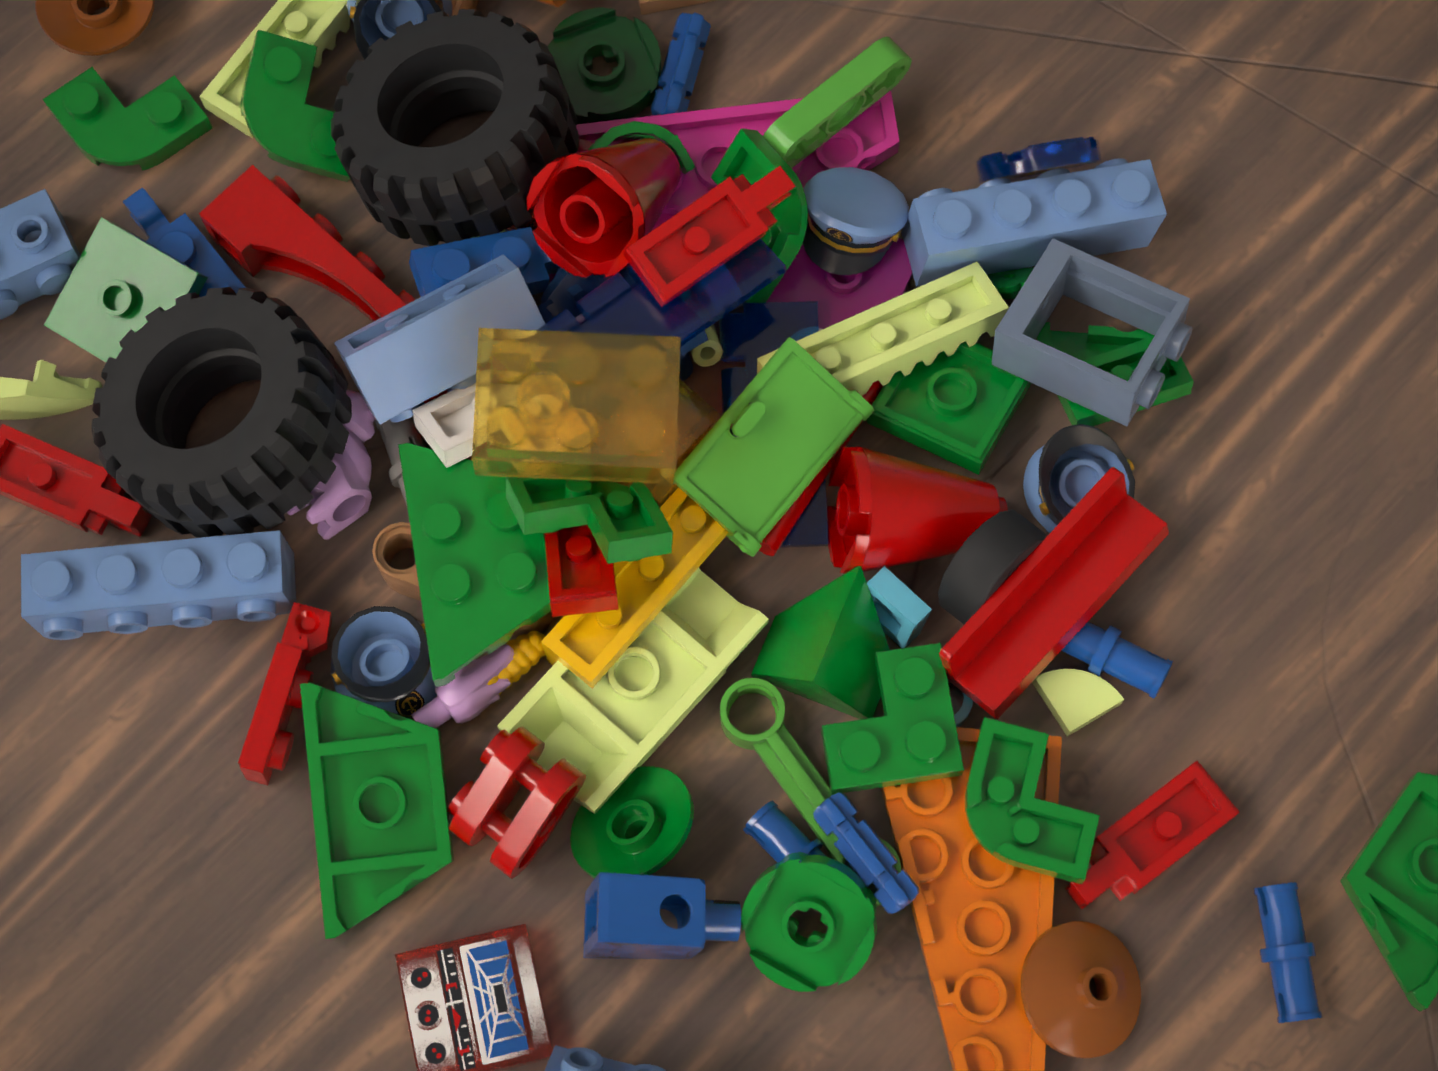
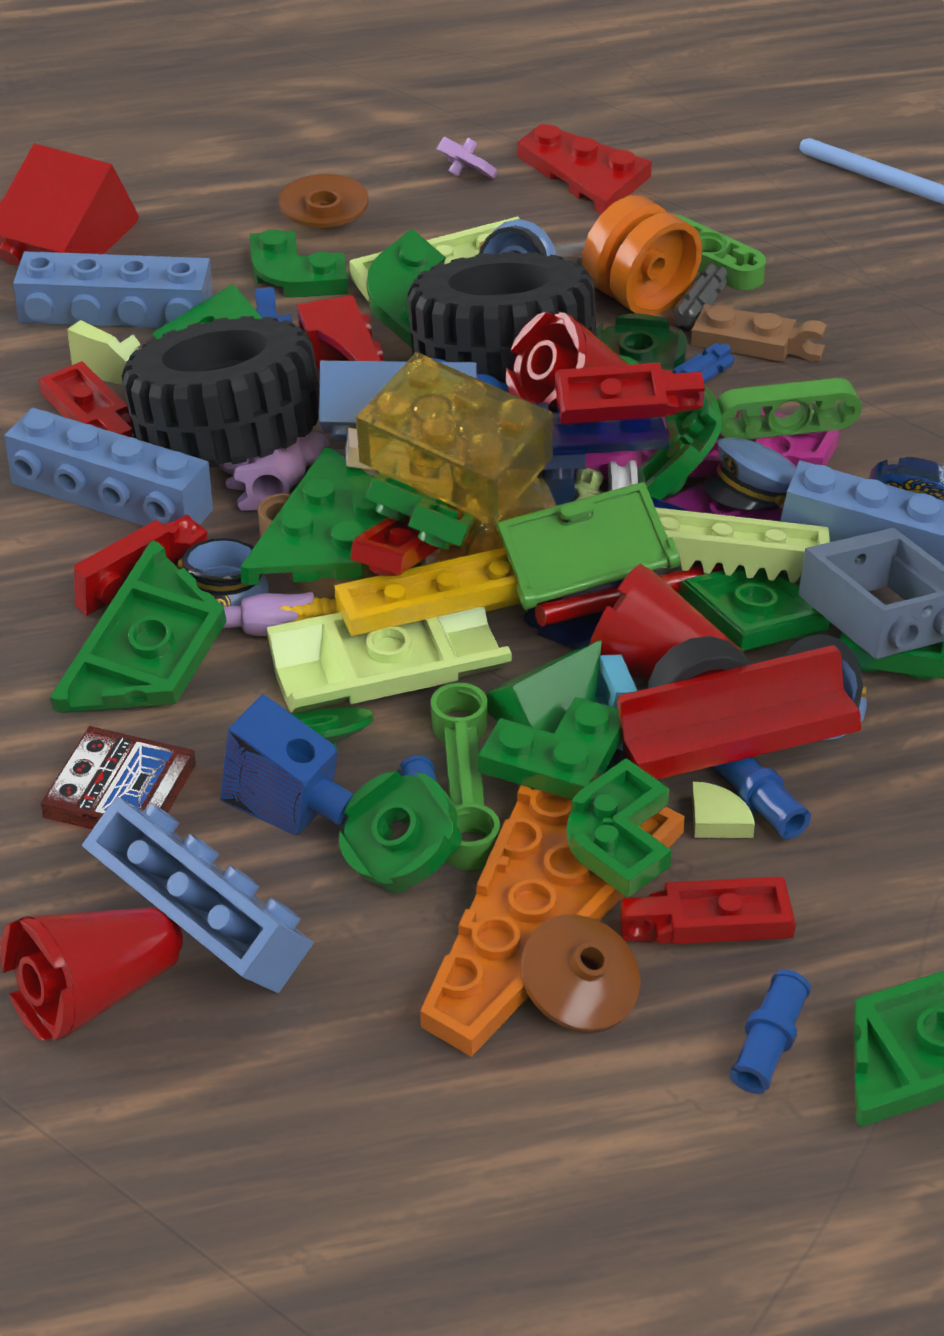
camera: 30 degrees right, 30 degrees down
(481, 804) = (243, 666): red brick -> none
(866, 853) = (473, 804): blue axle -> none

